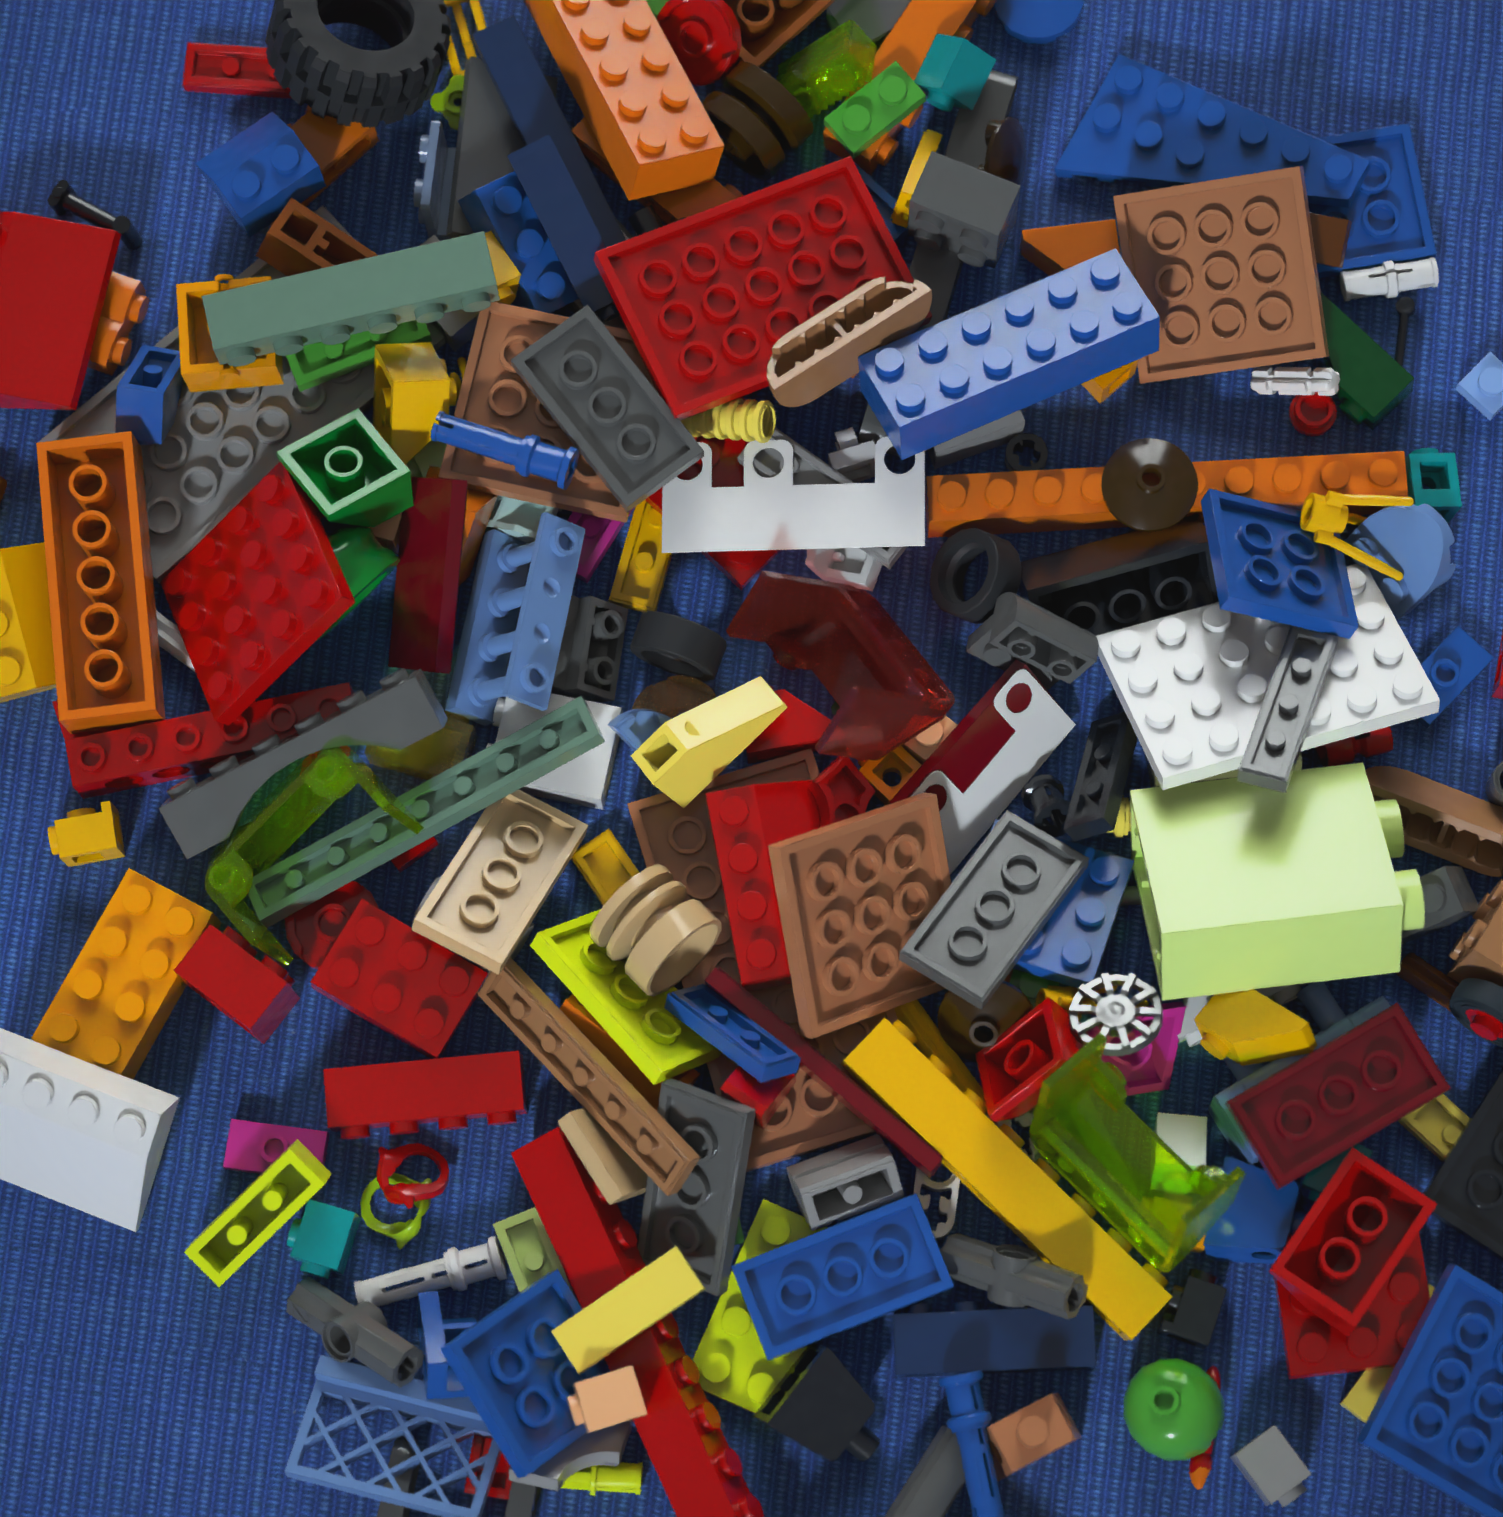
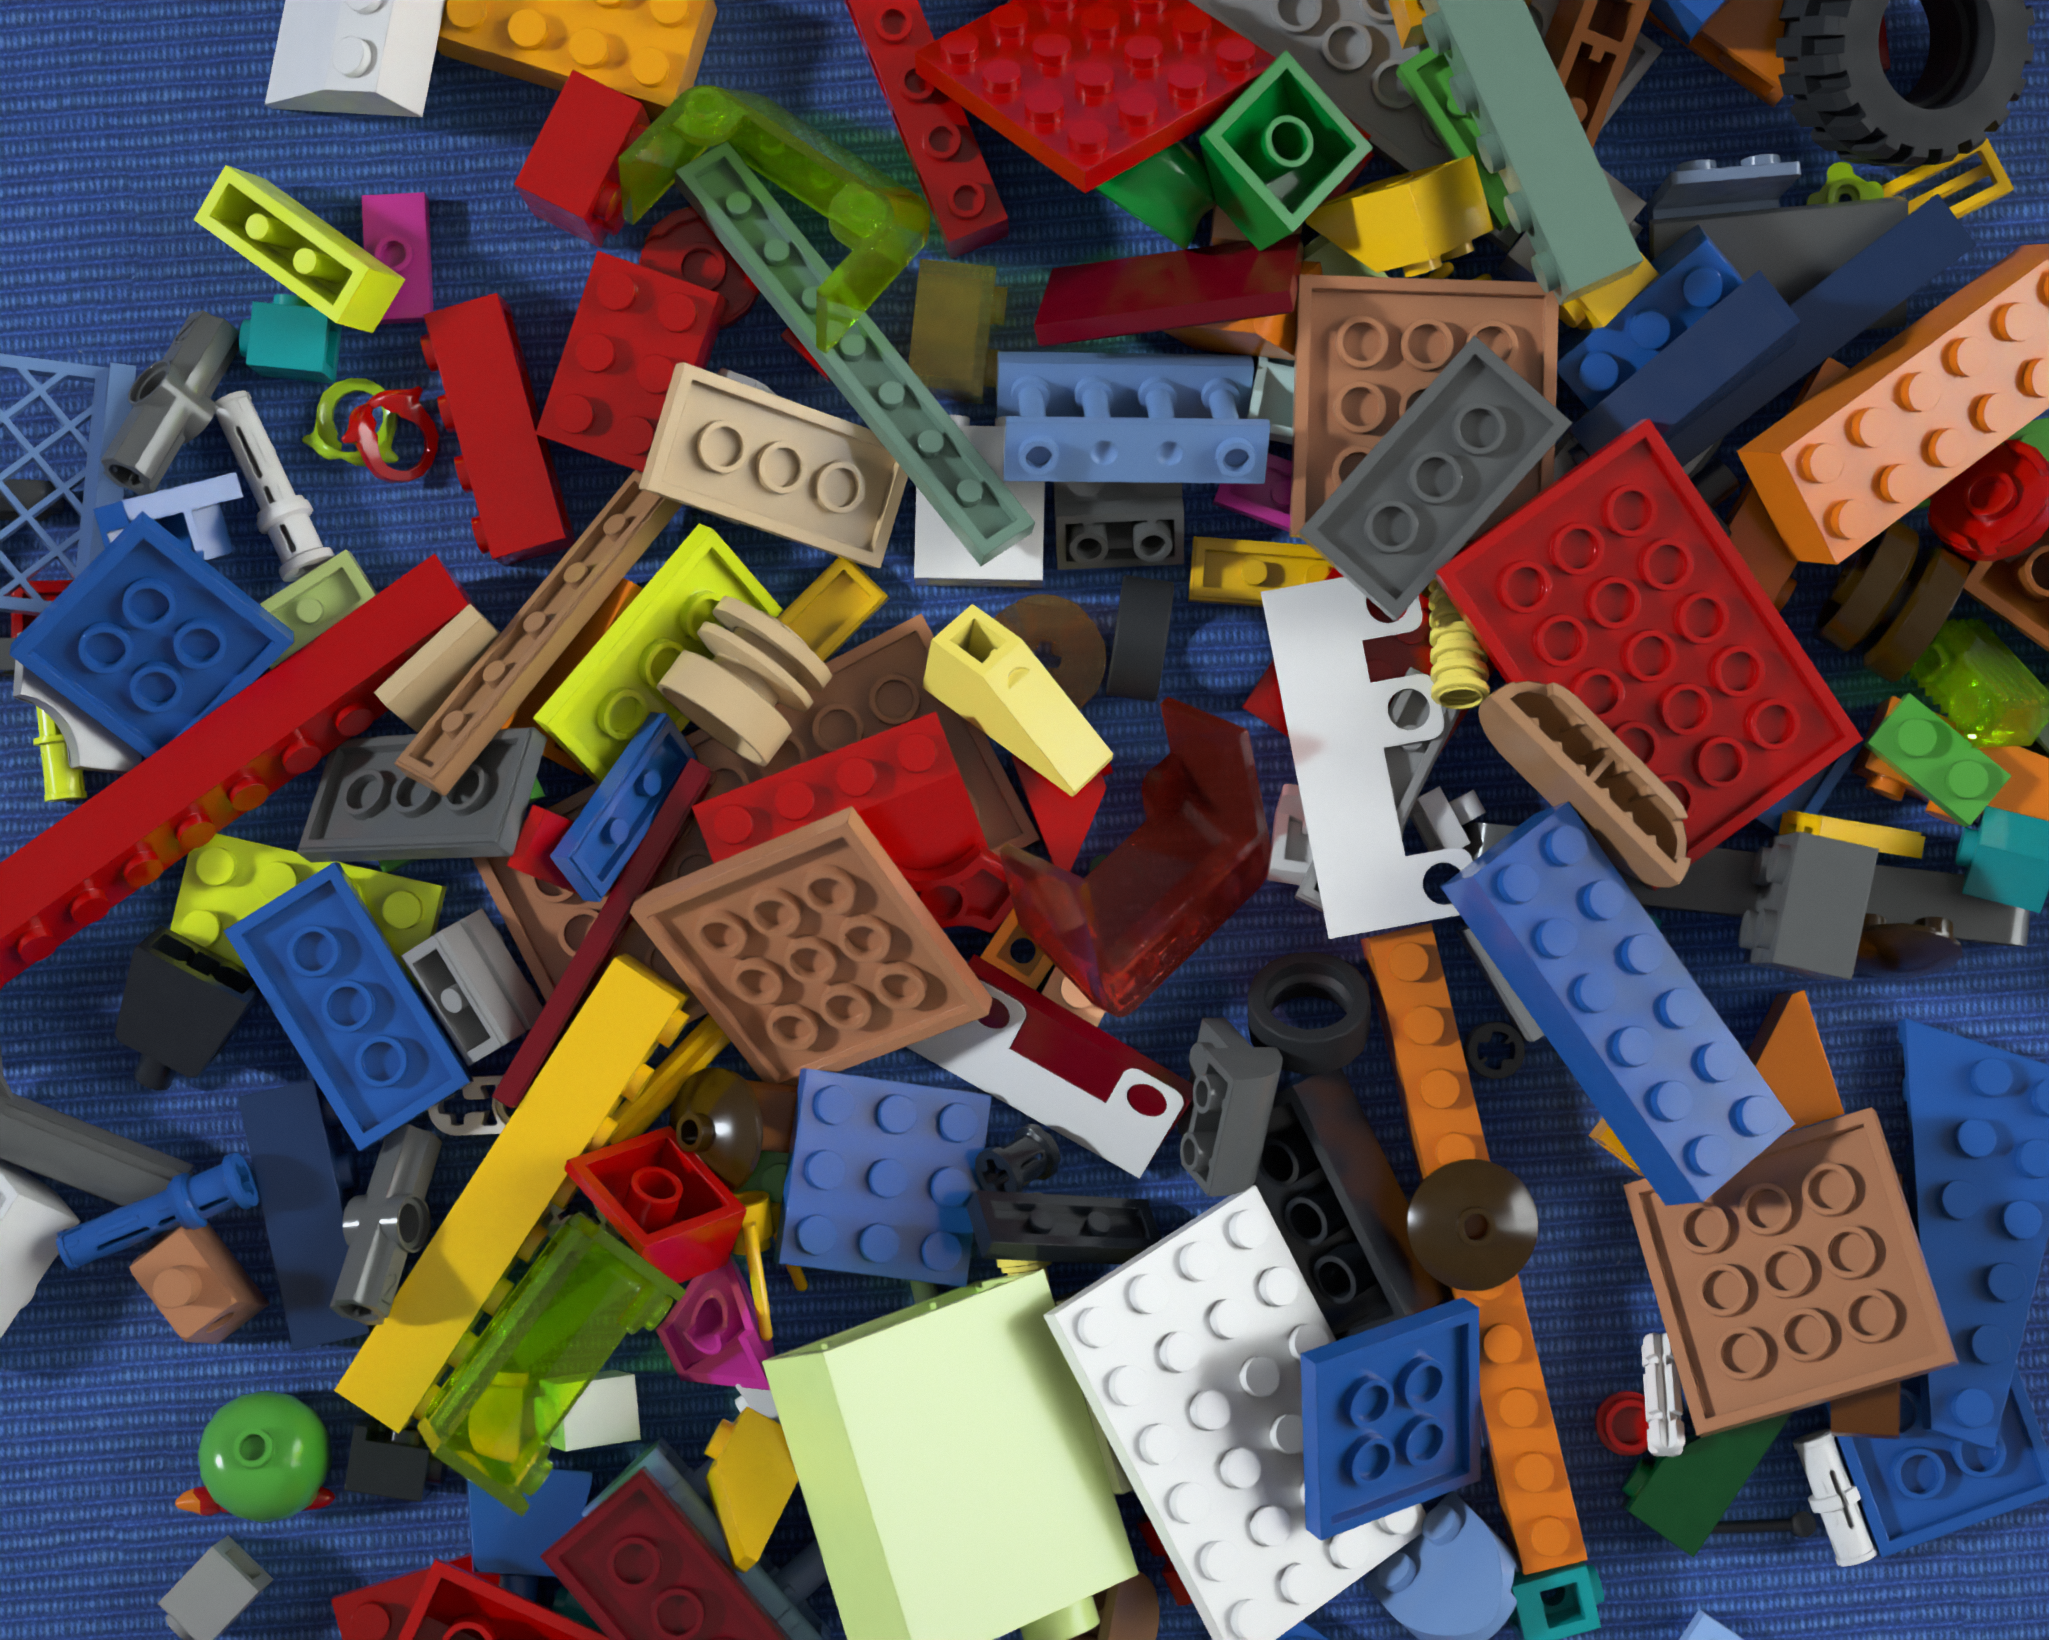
camera: 75 degrees right, 10 degrees up
(388, 718) = (957, 276): dark grey arch -> none
(526, 454) = (1348, 382): blue pin -> none
(606, 1400) = (128, 737): light nougat brick -> none
(628, 1310) = (246, 742): light yellow tile -> none
(637, 726) = (1021, 610): medium blue tile -> none
(994, 909) = (854, 1117): tile -> none
(1117, 1012) = (736, 1302): wheel -> none
(1287, 709) = (1180, 1466): tile -> none
(1329, 515) = (1477, 1475): yellow plant -> none

